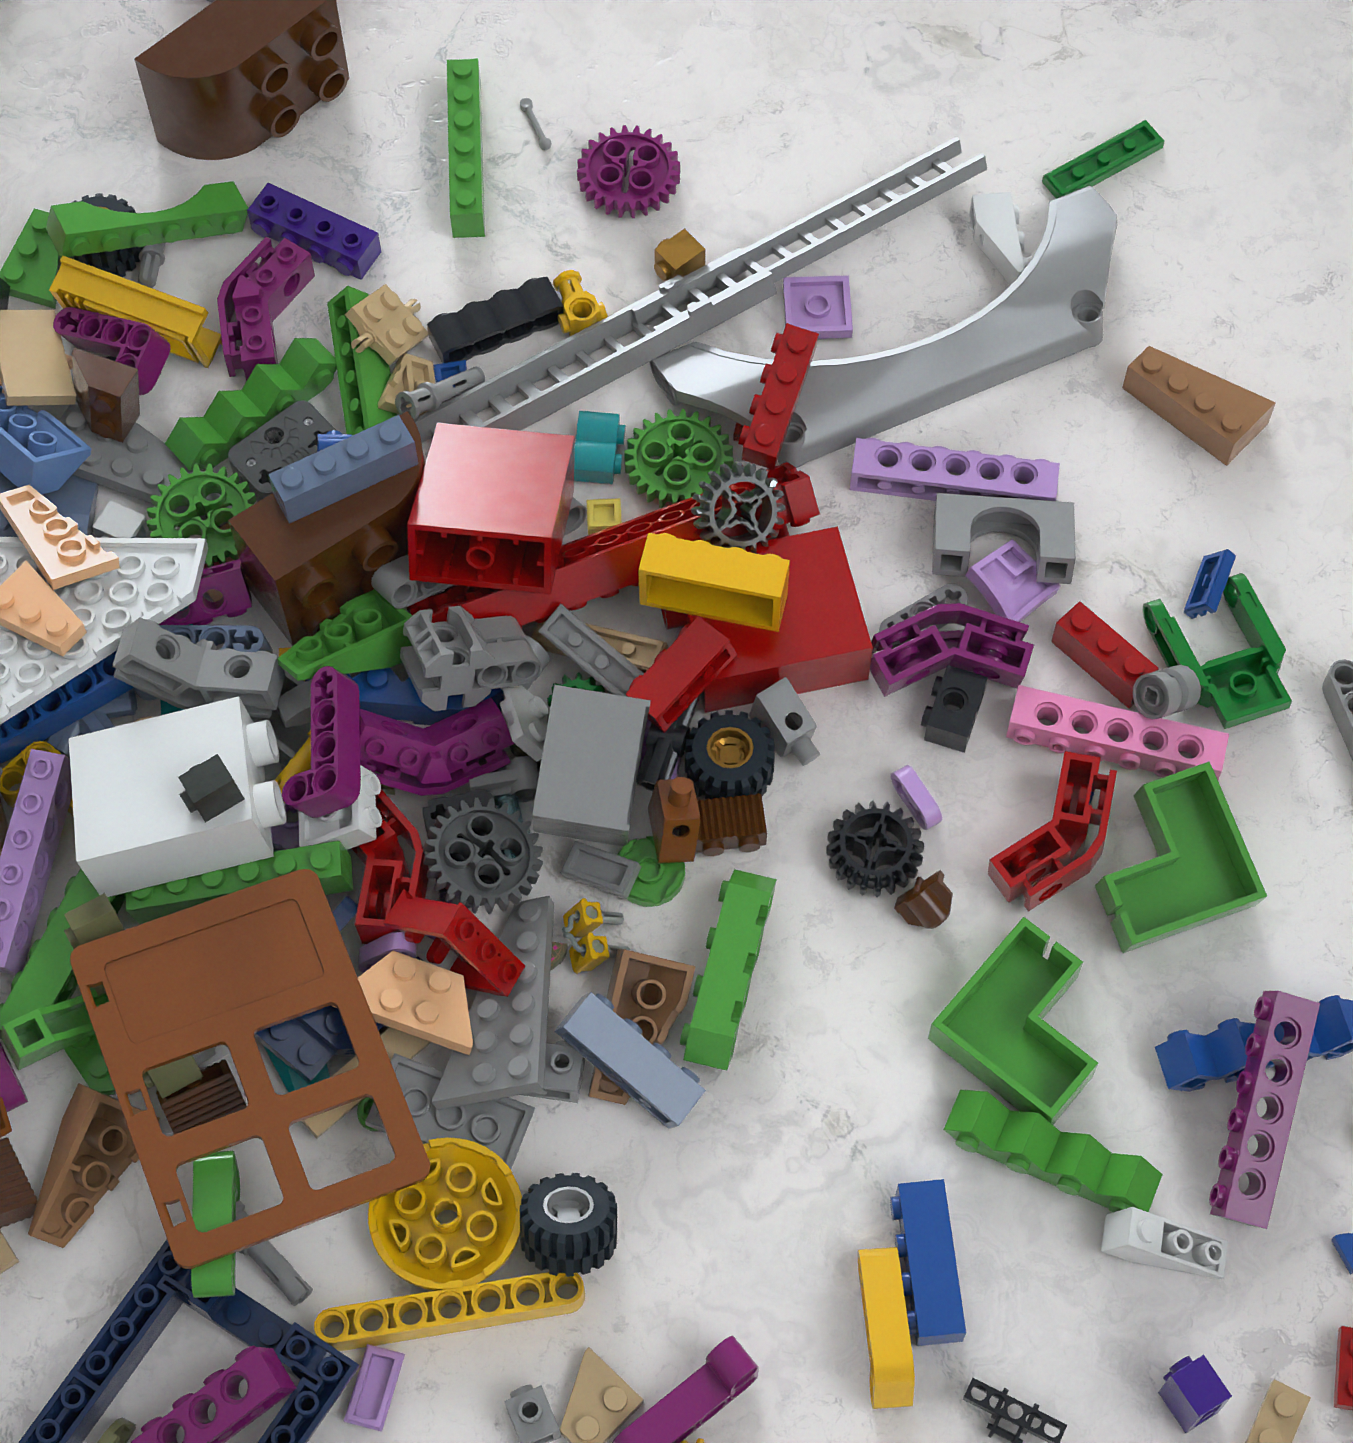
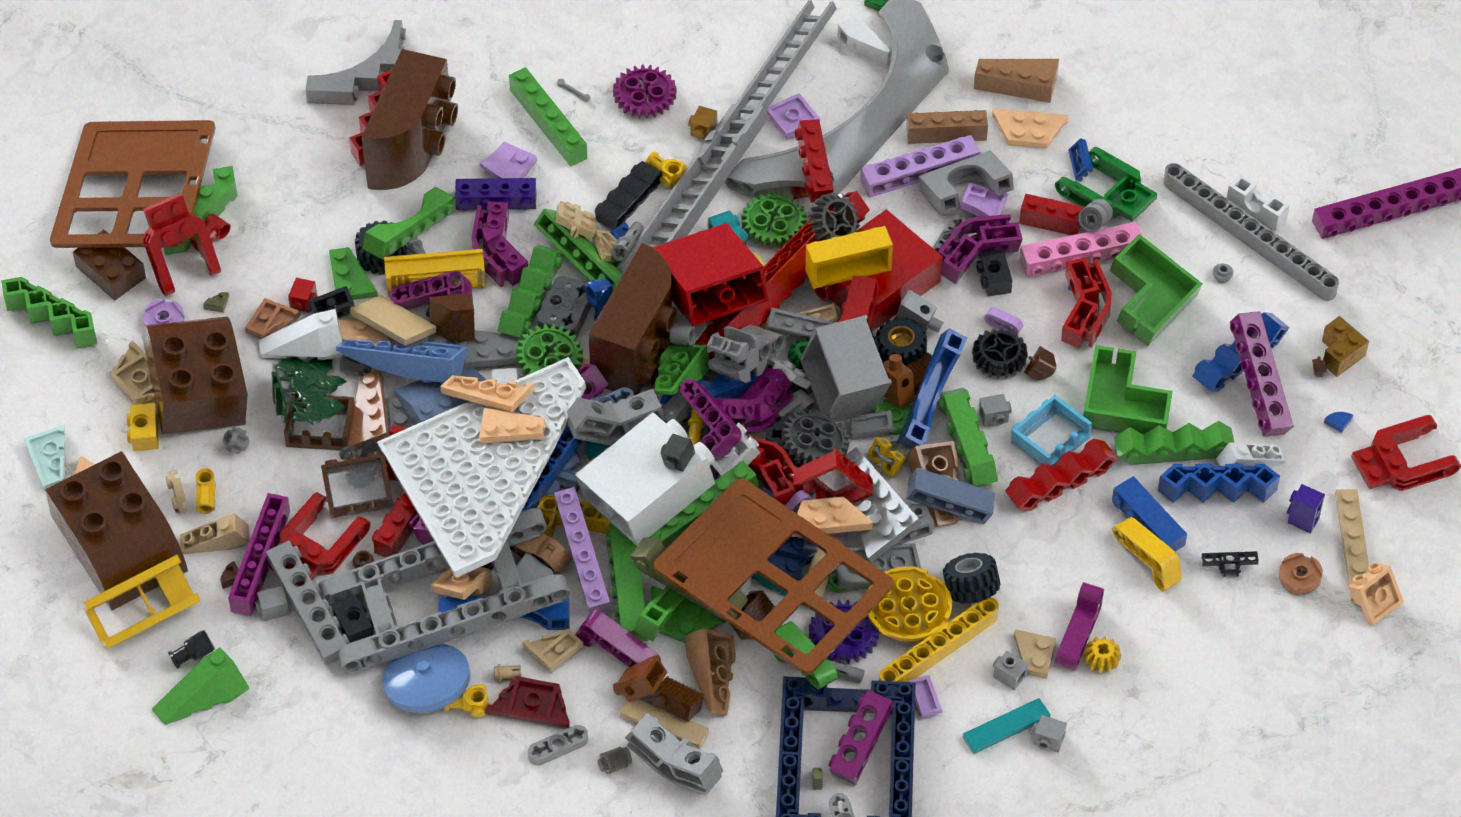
camera: 30 degrees left, 10 degrees down
(310, 1238) = (848, 648): none -> dark purple gear
(343, 468) = (634, 280): sand blue brick -> none
(367, 192) = (508, 162): none -> lavender plate
(715, 862) = (940, 366): none -> blue arch
(804, 943) = (994, 410): none -> light grey brick
(854, 1112) = (1069, 472): none -> red brick
(867, 1028) = (1051, 431): none -> window
(1035, 431) = (946, 126): none -> medium nougat brick
(1101, 1268) = (1229, 480): none -> blue brick
(1166, 491) = (1028, 127): none -> light nougat wing
(1320, 895) = (1222, 272): none -> light grey plate

